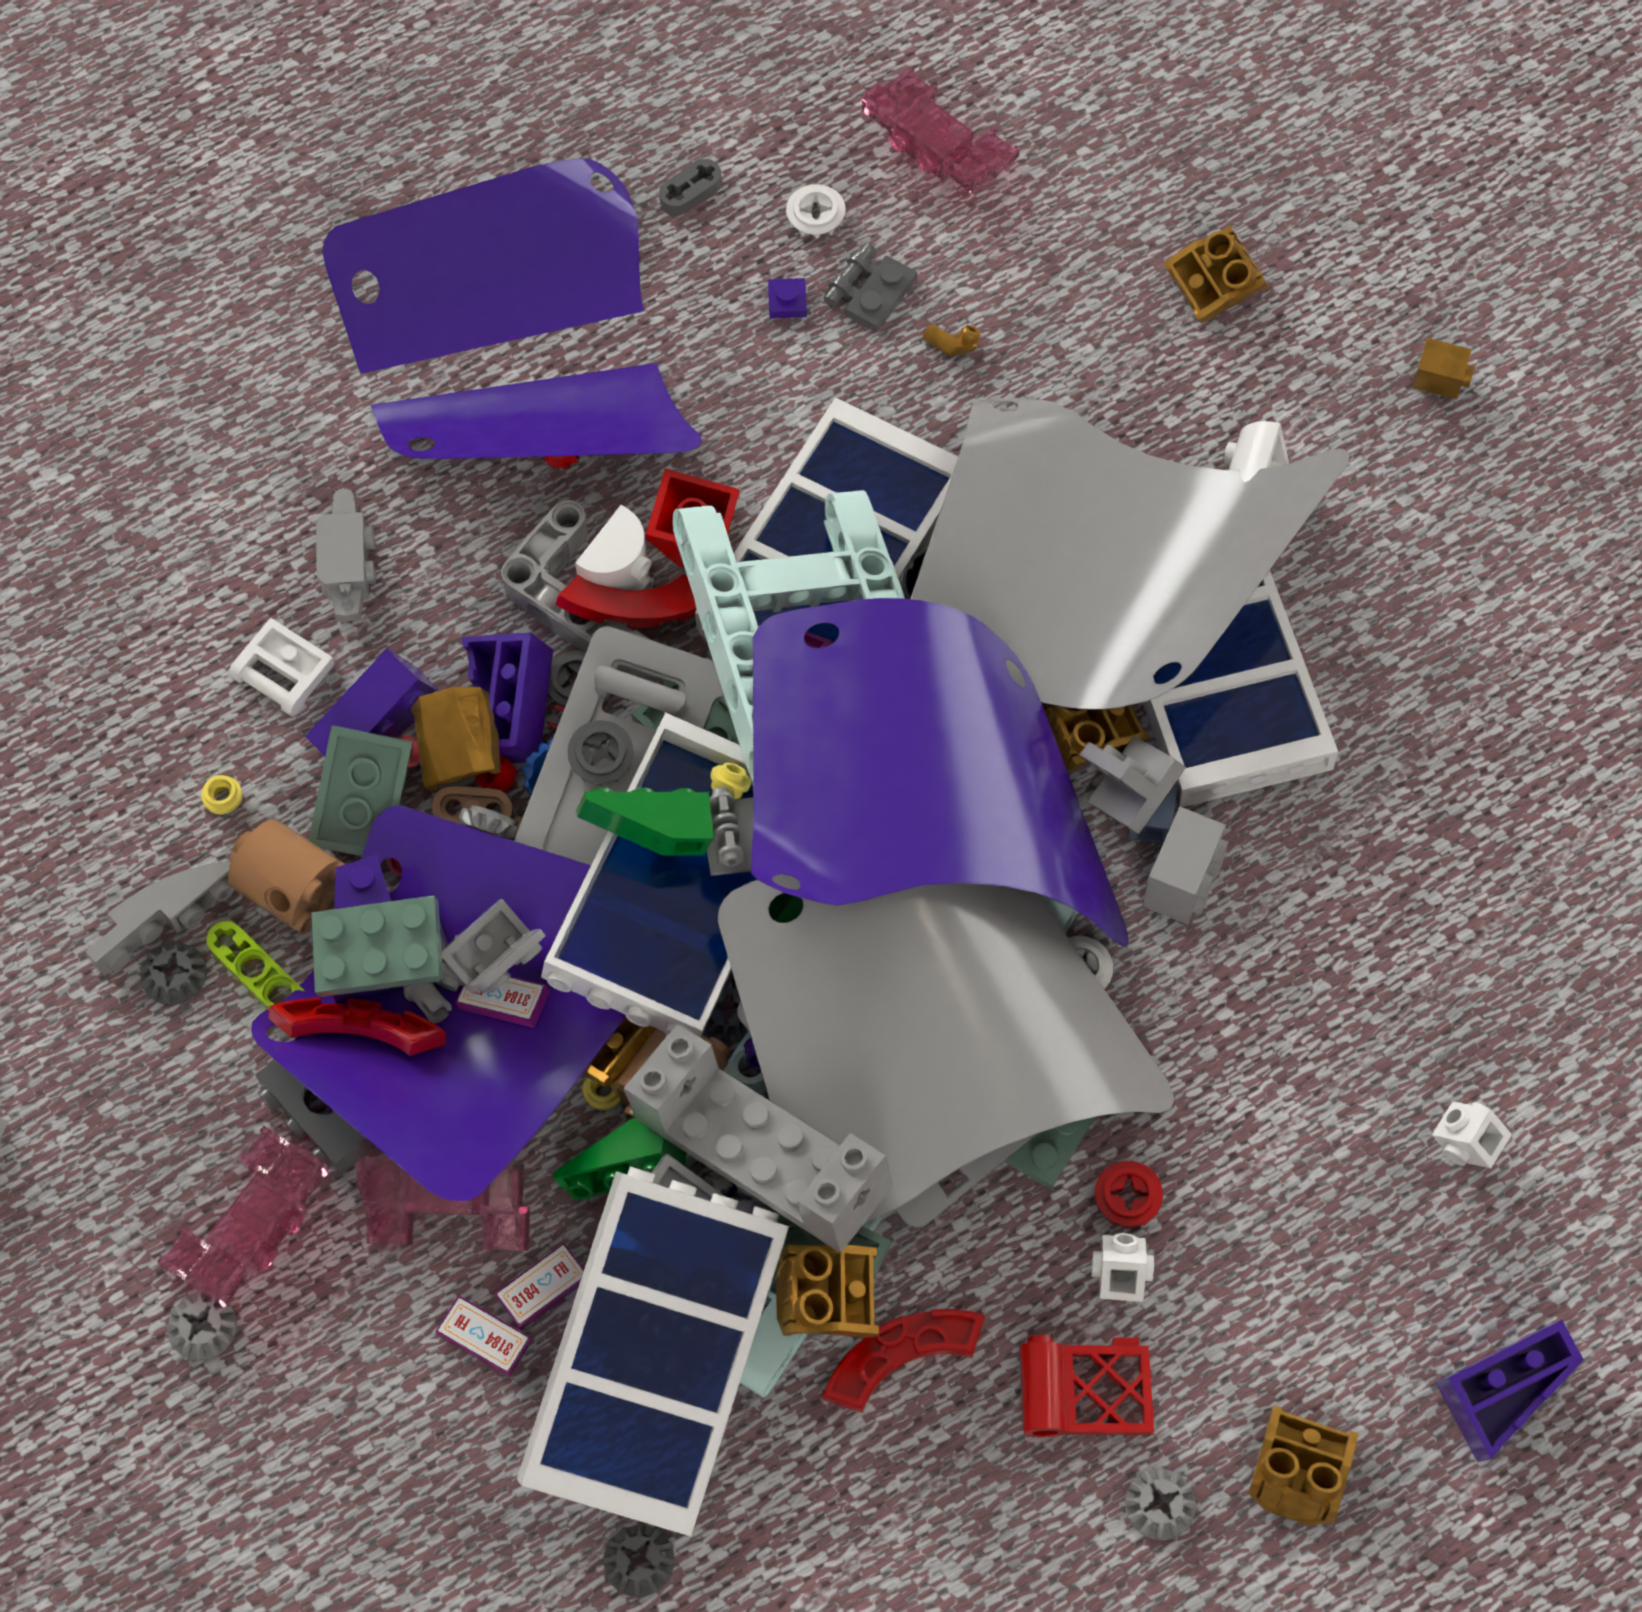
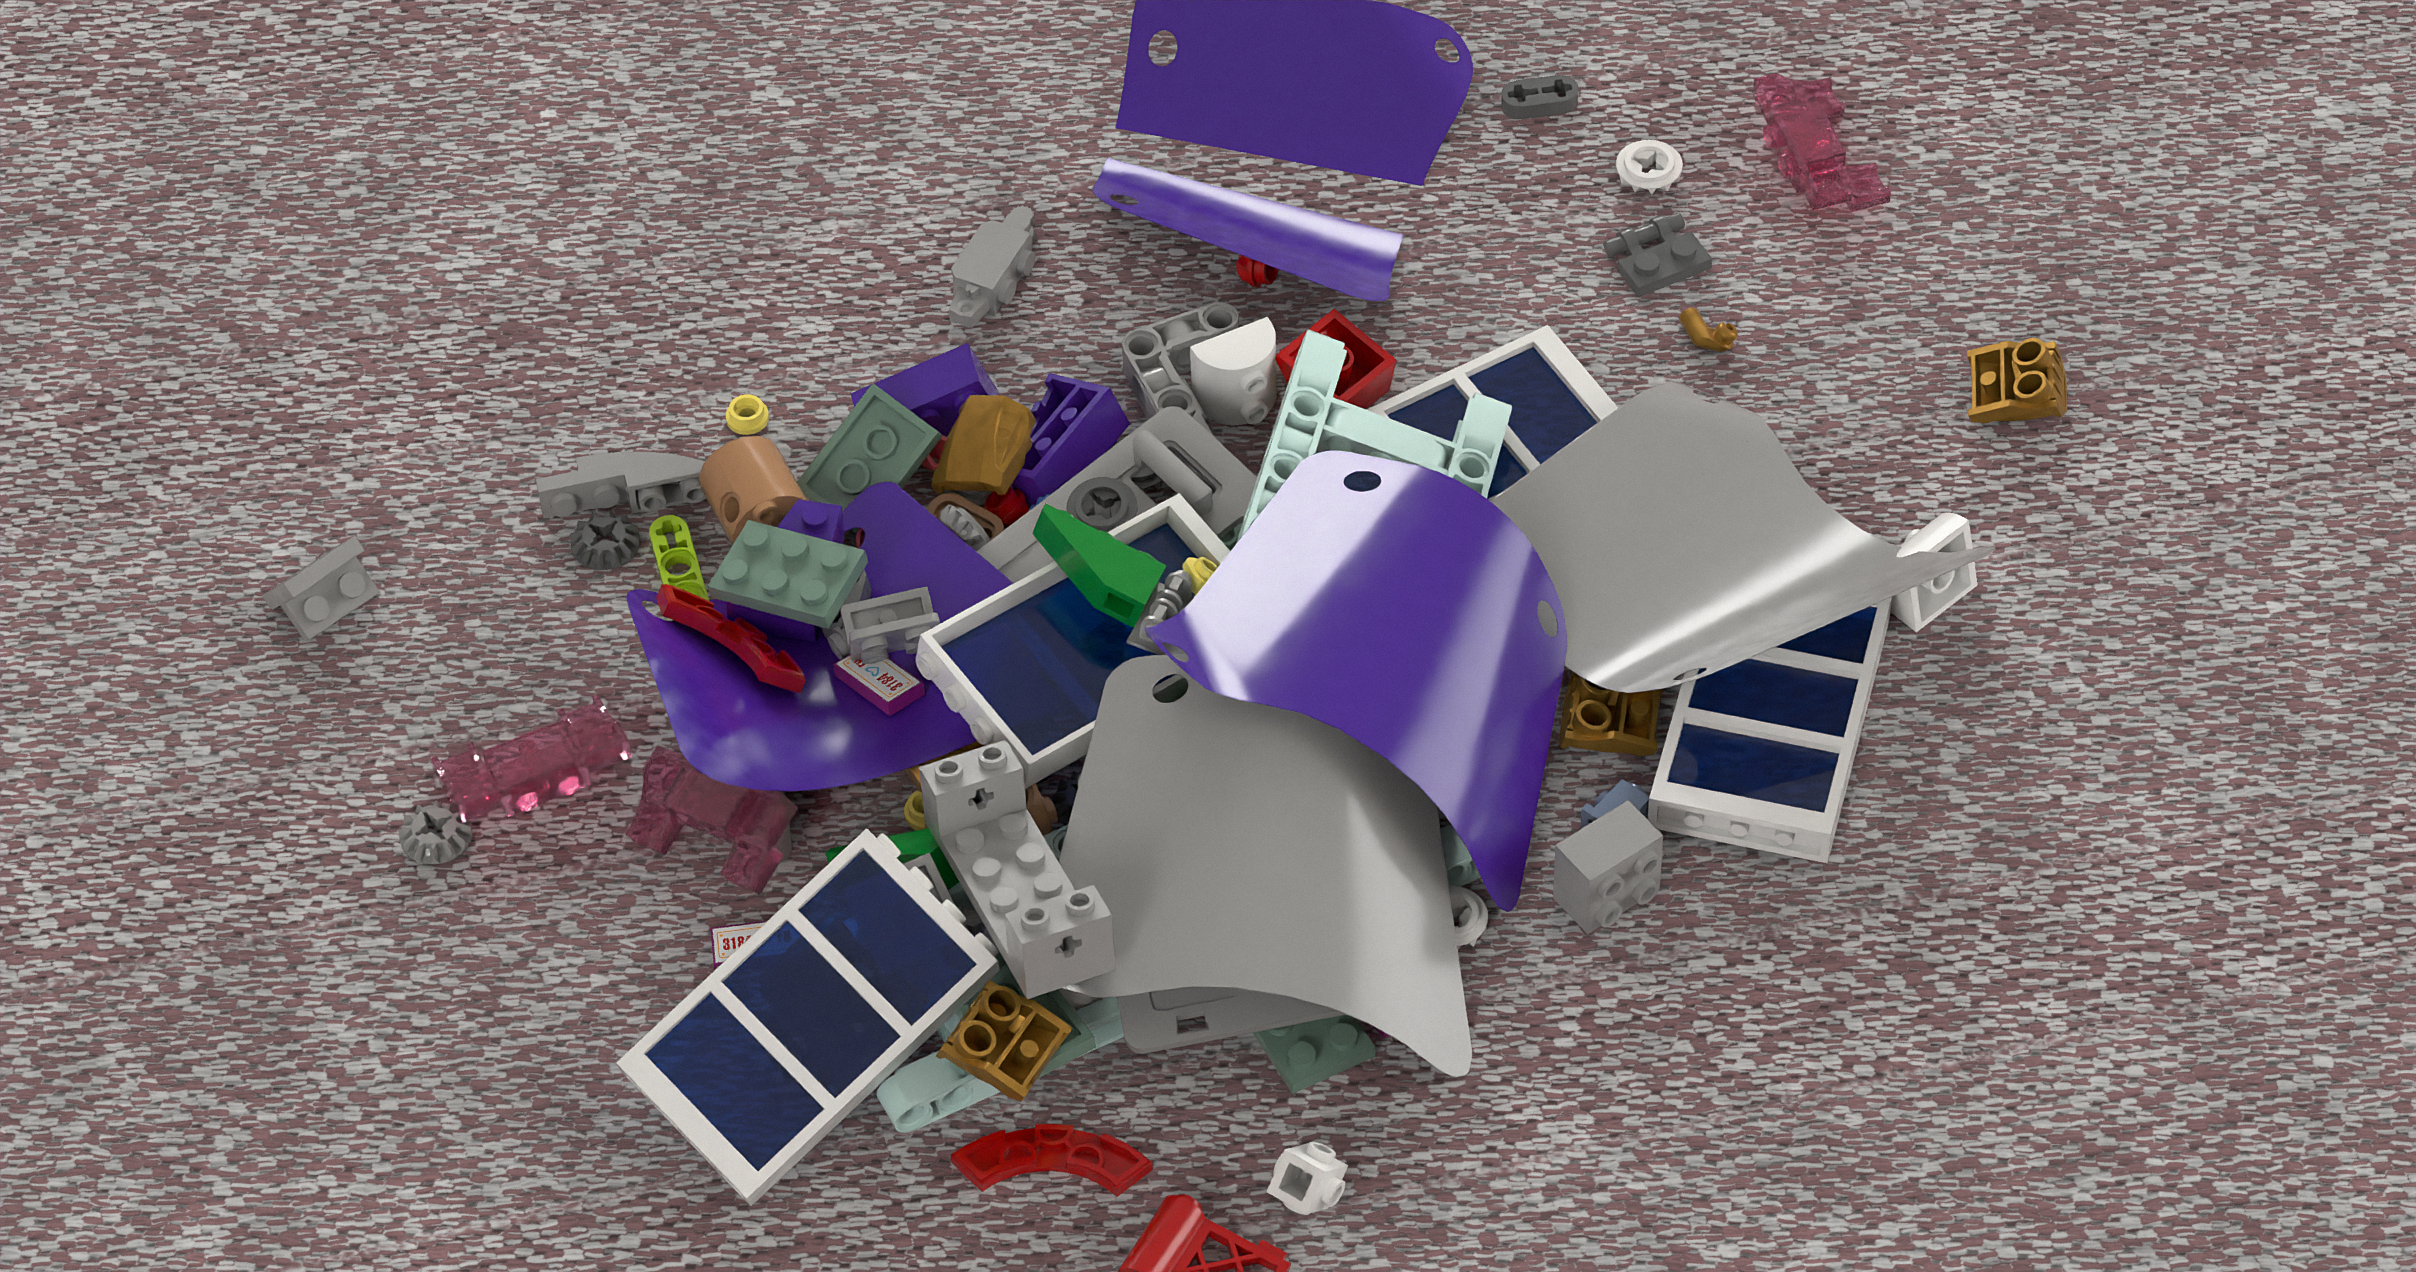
camera: 30 degrees right, 15 degrees down
(288, 656) = (883, 326): white plate -> none
(333, 1137) = (648, 721): dark grey arch -> none
(428, 1000) = (811, 644): light grey pin -> none
(484, 1336) = (675, 956): white tile -> none
(633, 607) = (1228, 419): red tile -> none
(643, 1580) = (679, 1221): dark grey gear -> none
(787, 298) = (1568, 230): dark purple plate -> none
(1133, 781) = (1610, 769): light grey bracket -> none
(1143, 1182) = (1357, 1112): red gear -> none
(1443, 369) = (2193, 562): pearl gold brick -> none
(1471, 1135) = (1734, 1229): white brick -> none

